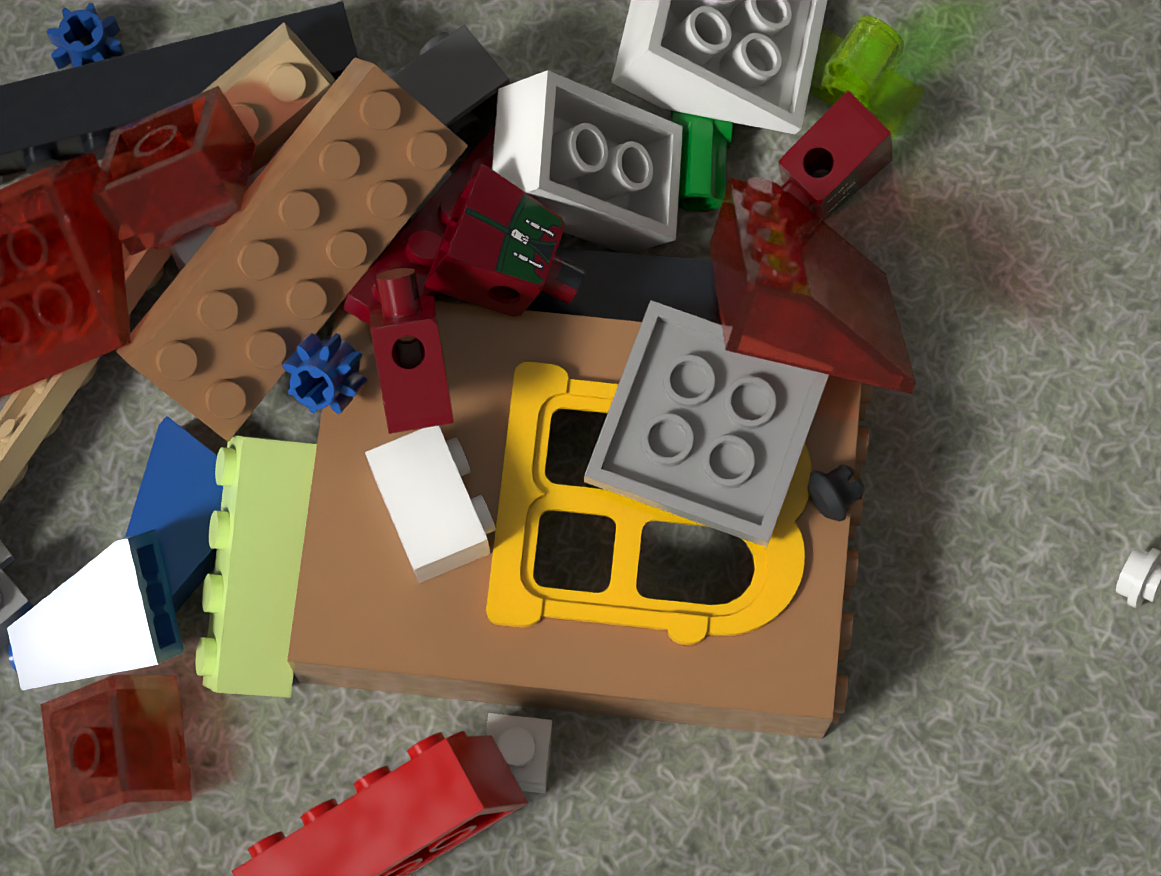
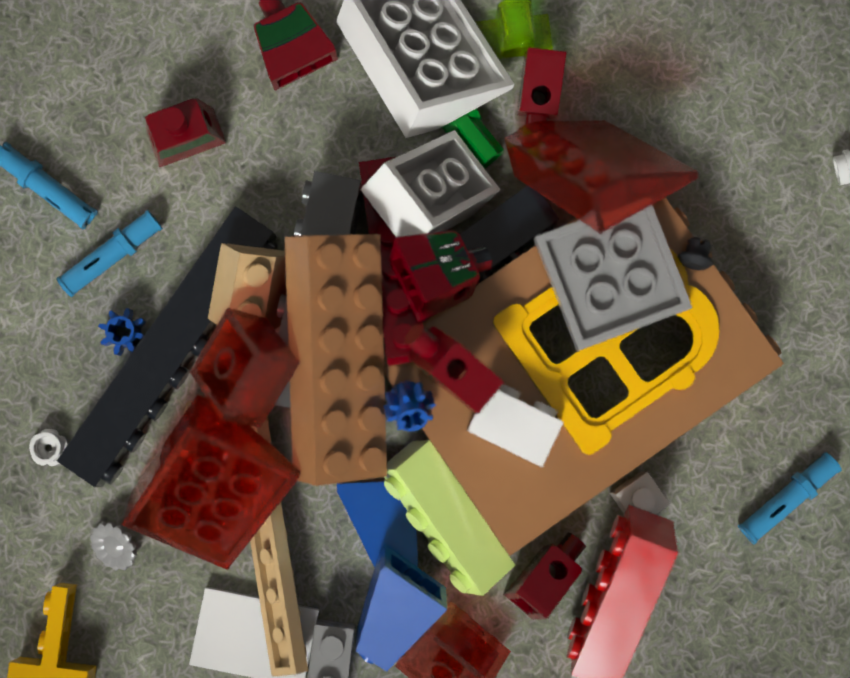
camera: 45 degrees left, 10 degrees up
(289, 752) = (536, 589): none -> dark red torso

